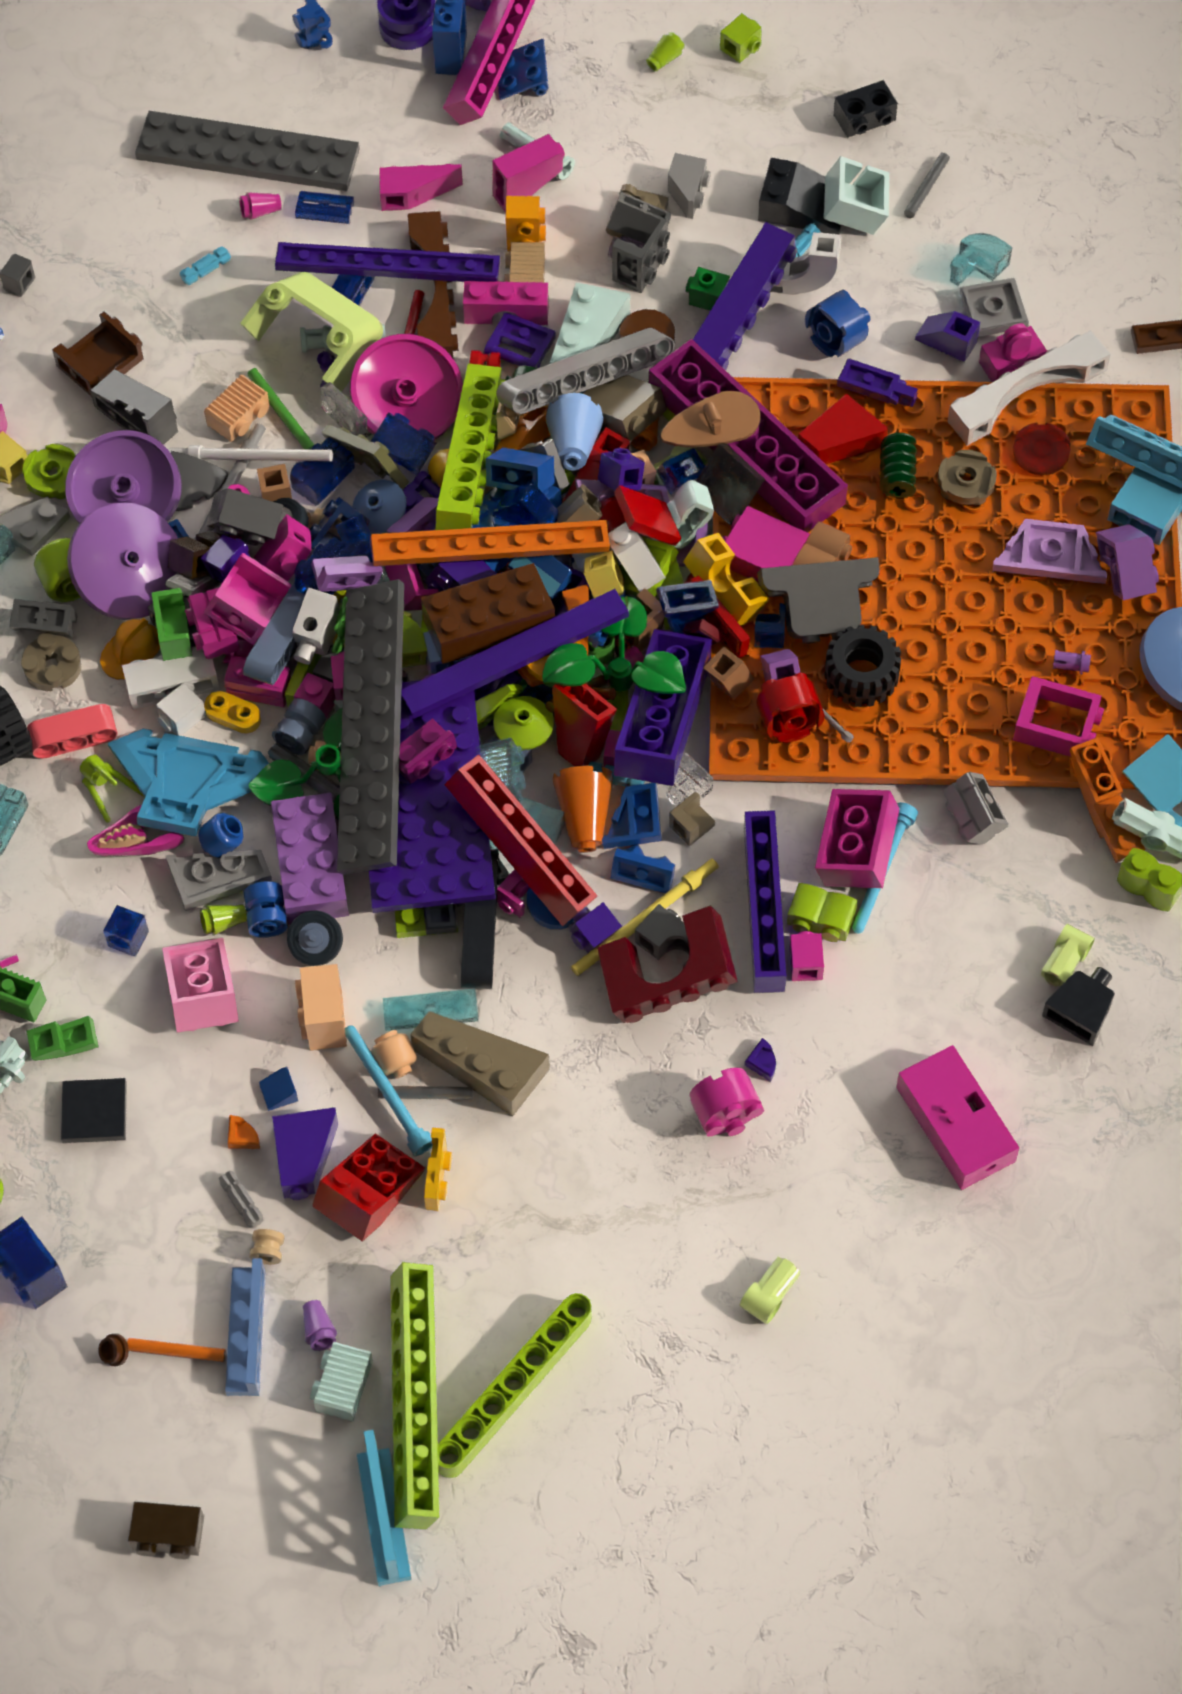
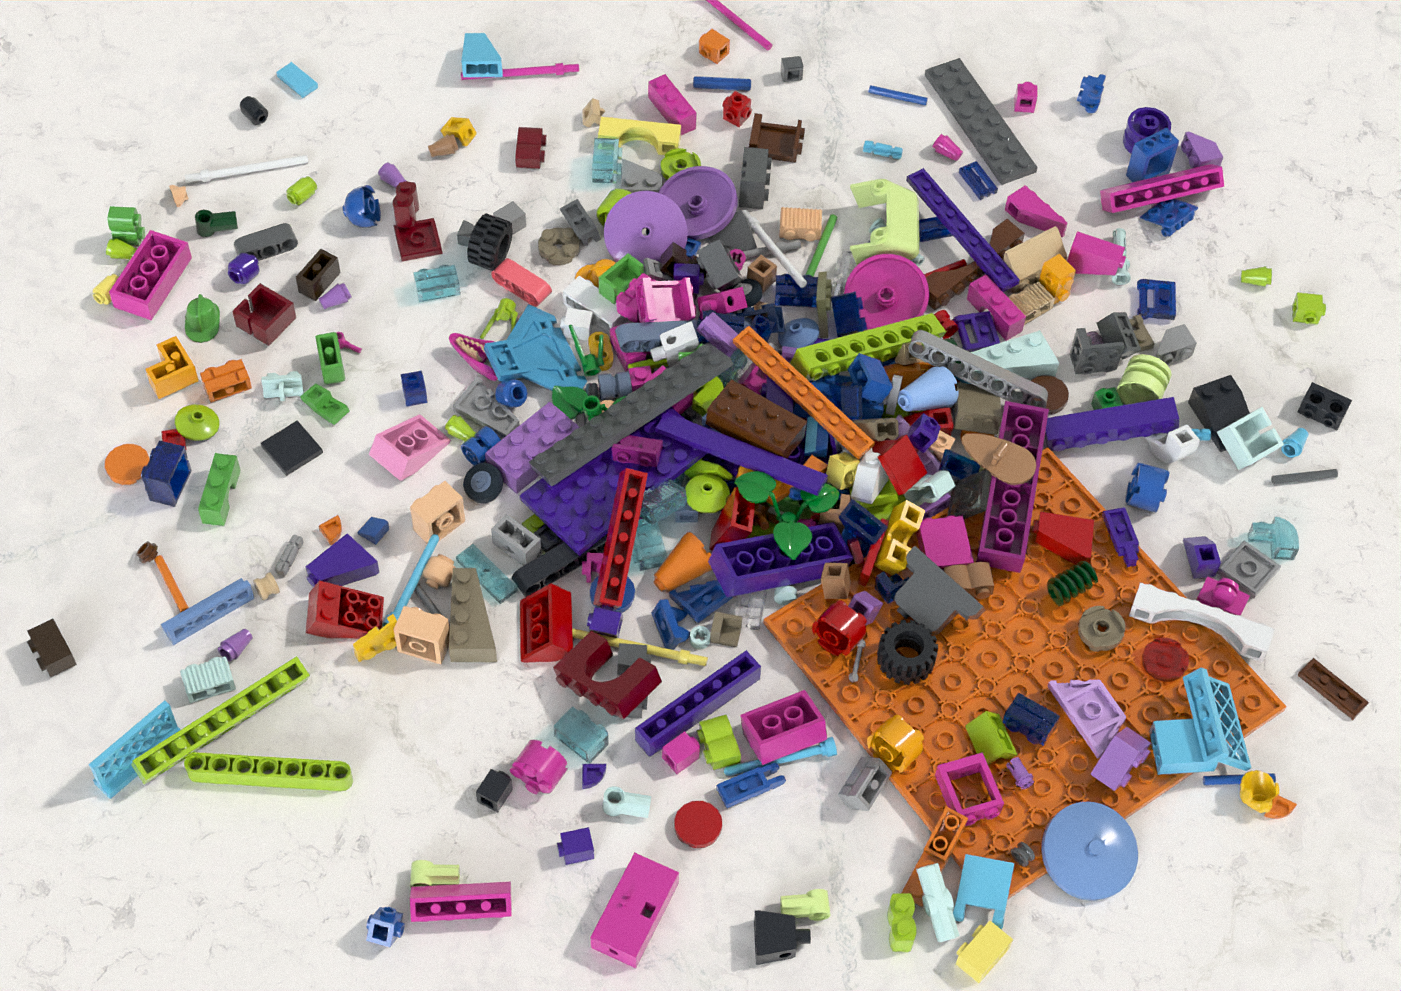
camera: 50 degrees right, 5 degrees down
(25, 363) = (736, 108): none -> red brick
(94, 1218) = (221, 477): none -> bright green arch
(143, 201) = (898, 95): none -> blue bar
(245, 733) = (590, 363): none -> green plant
(258, 81) = (1025, 92): none -> dark pink brick
(421, 950) = (516, 540): none -> light grey brick
(470, 1116) = (422, 634): none -> light nougat brick
(483, 220) = (1028, 257): none -> tan slope
(548, 990) = (546, 625): none -> red slope
(622, 151) = (1163, 299): none -> clear blue plate
(687, 854) = (703, 632): none -> light aqua bush
(697, 735) = (785, 595): none -> light aqua tile
(711, 1039) = (581, 734): none -> clear light blue brick
(712, 1166) = (494, 790): none -> black brick
(715, 237) = (1143, 379): none -> yellowish green wheel
(799, 1375) = (385, 926): none -> blue brick
(825, 1280) = (460, 901): none -> dark pink brick
(827, 1046) = (628, 804): none -> light aqua piece
(840, 1127) = (576, 846): none -> dark purple brick
(886, 161) = (1295, 443): none -> medium azure cone
(891, 919) = (749, 785): none -> blue hinge
(898, 995) = (698, 824): none -> red tile
(962, 745) = (896, 743): none -> light orange brick
(1012, 661) = (990, 737): none -> lime panel
(1022, 610) = (1030, 719): none -> clear blue brick
(1162, 720) = (1022, 854): none -> dark grey bush

